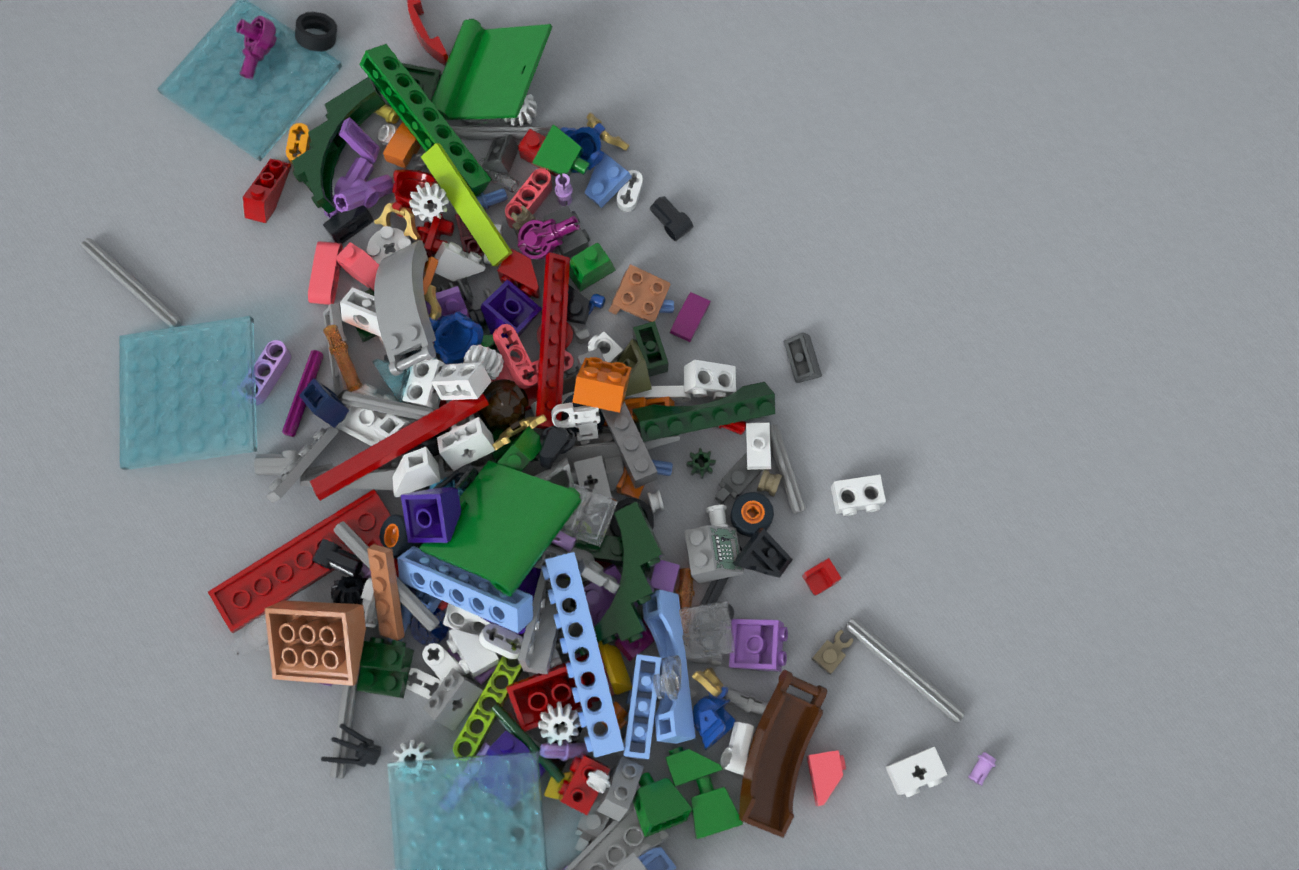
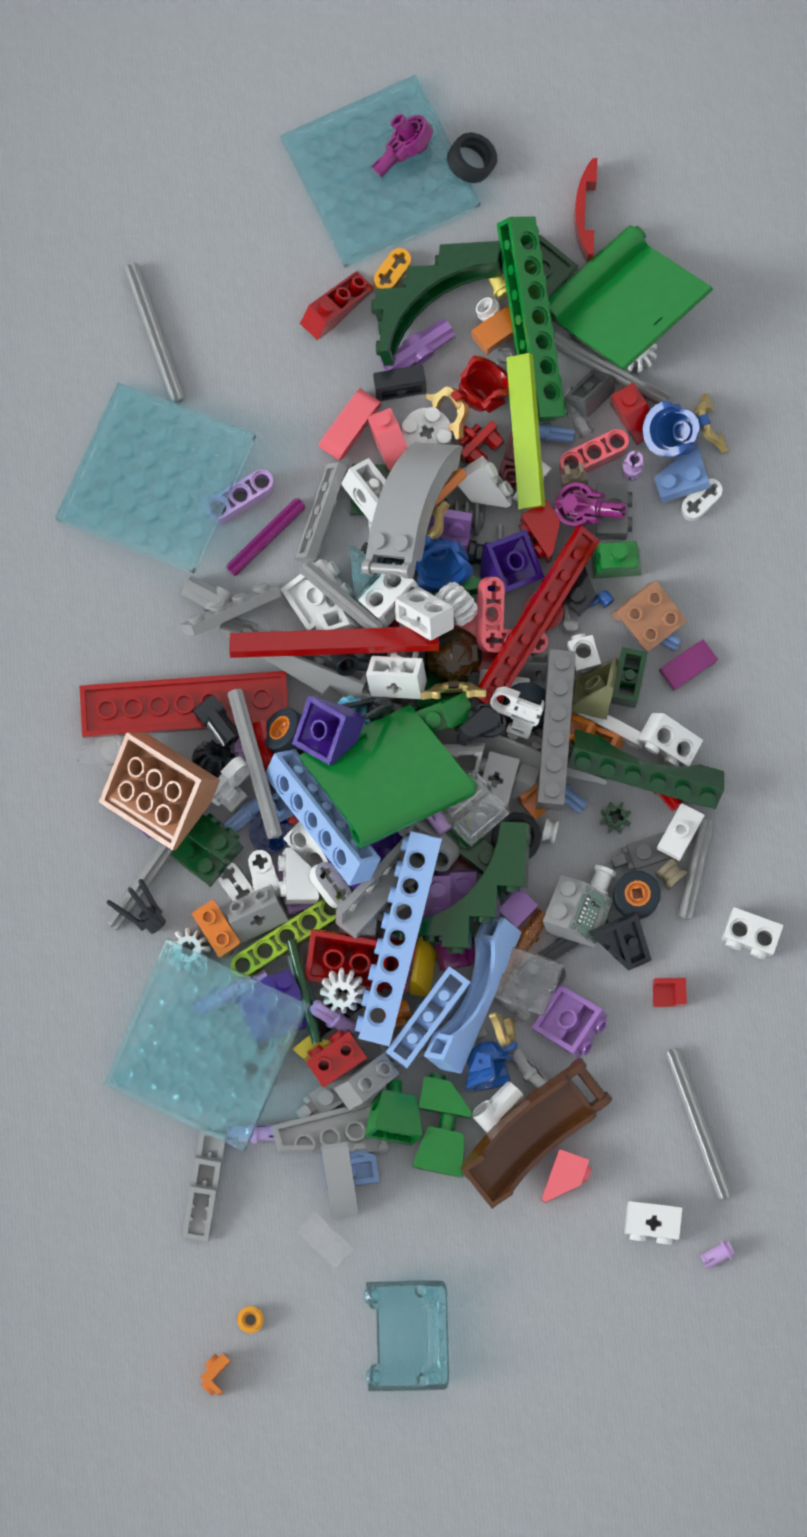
camera: 30 degrees right, 5 degrees up
(324, 403) = (281, 560): dark blue brick -> none
(339, 350) = (323, 514): clear orange pin -> none
(359, 140) = (455, 304): medium lavender plate -> none
(363, 193) = (430, 364): medium lavender piece -> none
(386, 592) = (247, 779): nougat plate -> none
(415, 472) = (333, 679): white slope -> none
(421, 206) = (489, 410): white gear -> none
(426, 731) = (216, 929): none -> orange bracket
(560, 154) = (648, 429): green torso -> none
(594, 572) = (450, 868): light grey plate -> none
(598, 781) = (350, 1061): white plate -> none
(601, 384) = (557, 691): orange slope -> none
(670, 679) = (467, 1005): clear piece -> none
(674, 222) = (728, 558): black piece -> none
(802, 358) = (778, 767): dark grey slope -> none
(830, 654) = (635, 1070): dark tan plate -> none

